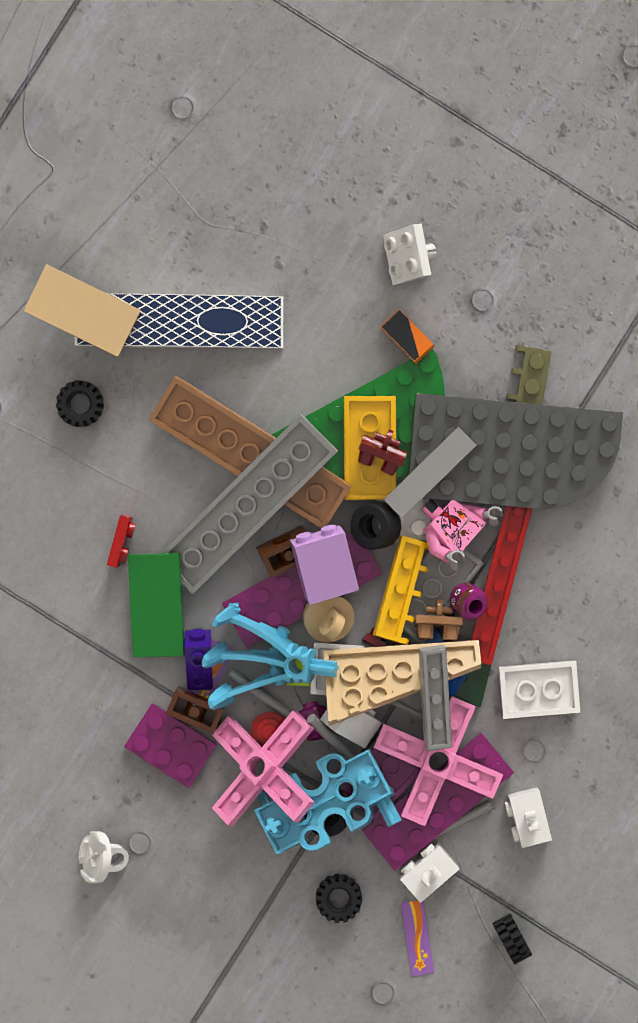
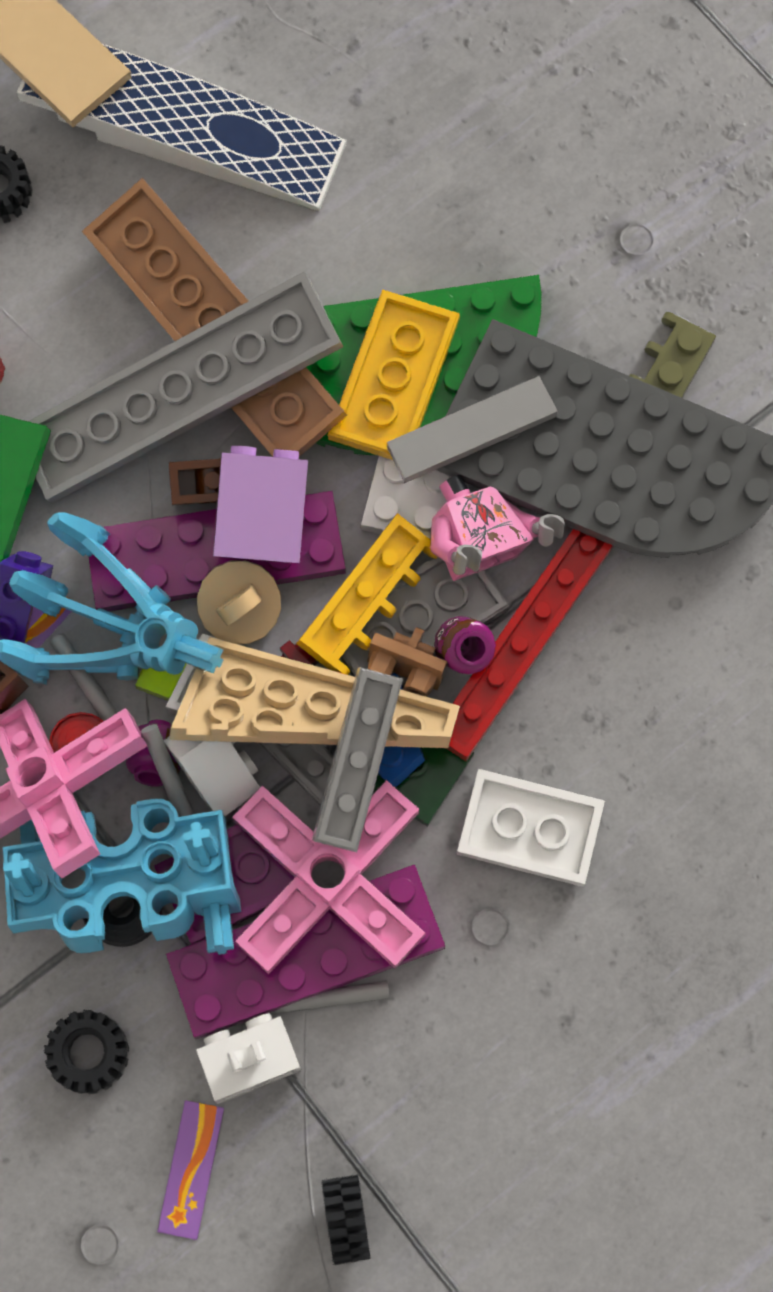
camera: 20 degrees right, 15 degrees down
(362, 525) = (377, 497): black tyre -> none
(384, 448) = (393, 367): dark red hips -> none
(407, 336) = (508, 245): black tile -> none
(408, 254) = (549, 130): white plate -> none
(529, 817) = (444, 1027): white brick -> none

